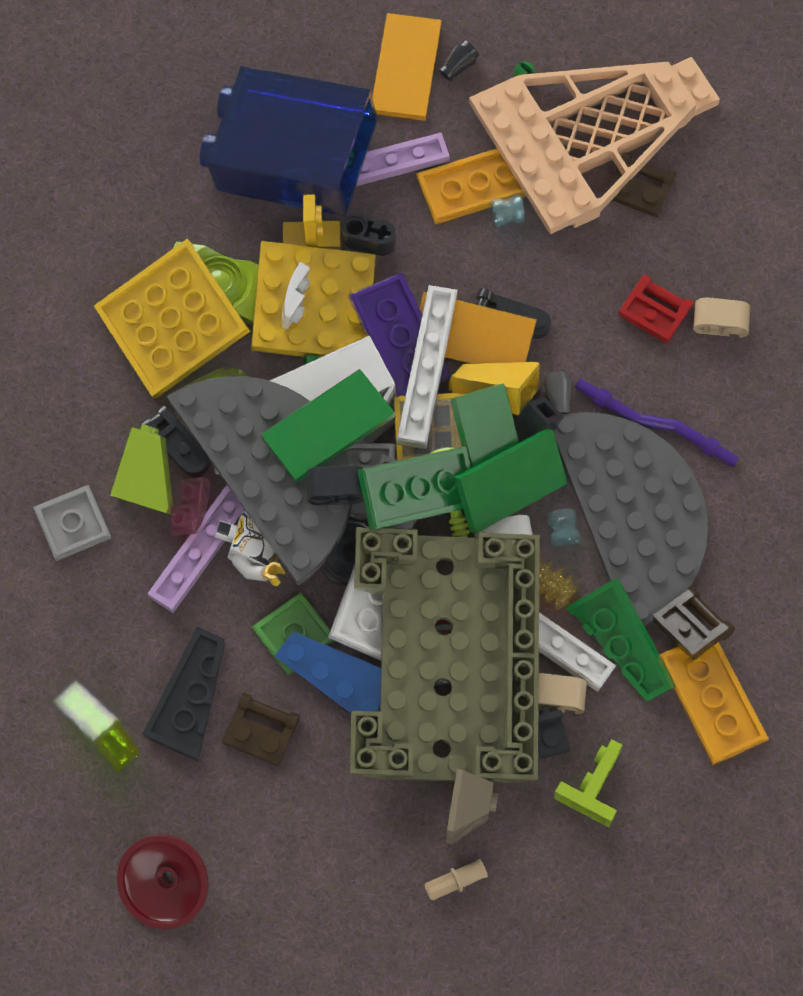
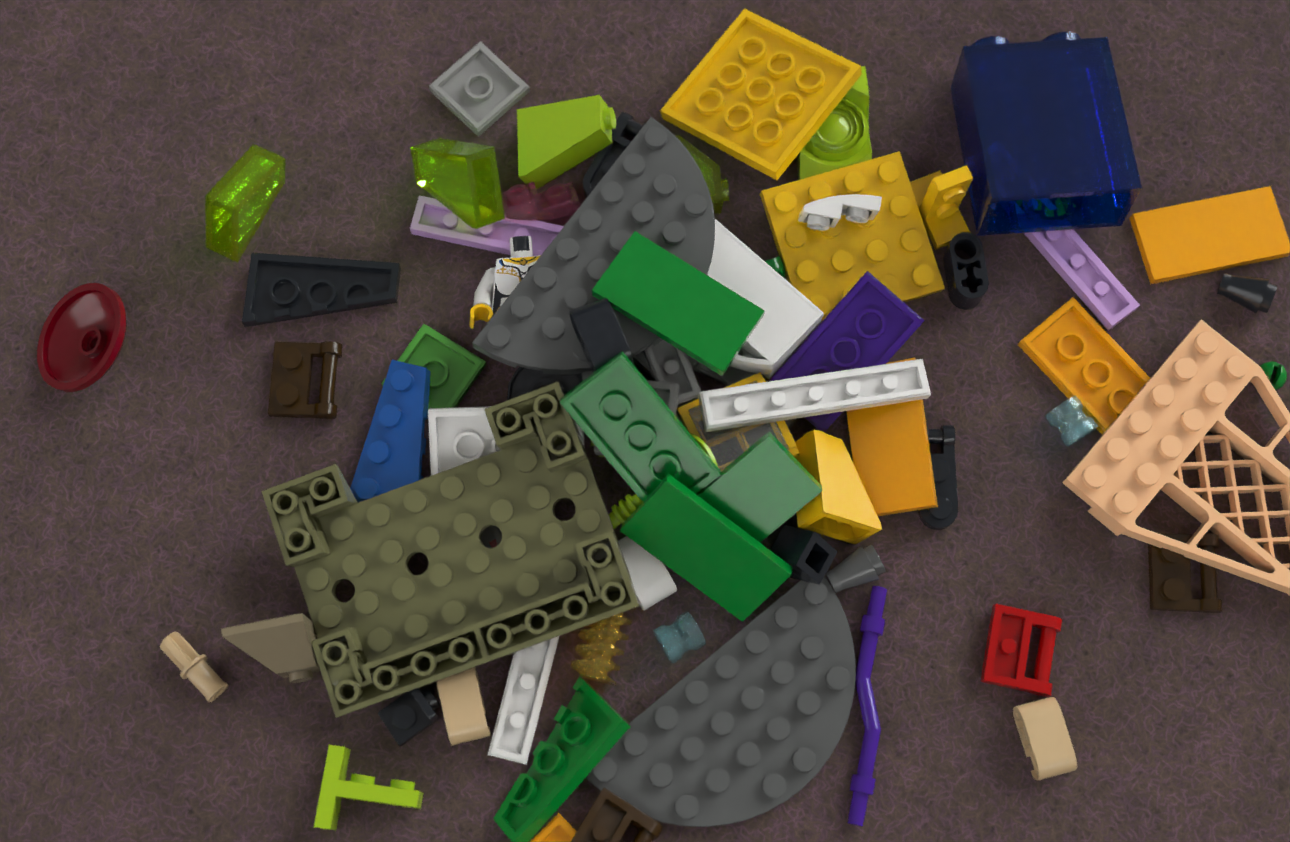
camera: 65 degrees right, 5 degrees up
(150, 554) = (461, 178): none -> clear neon green slope

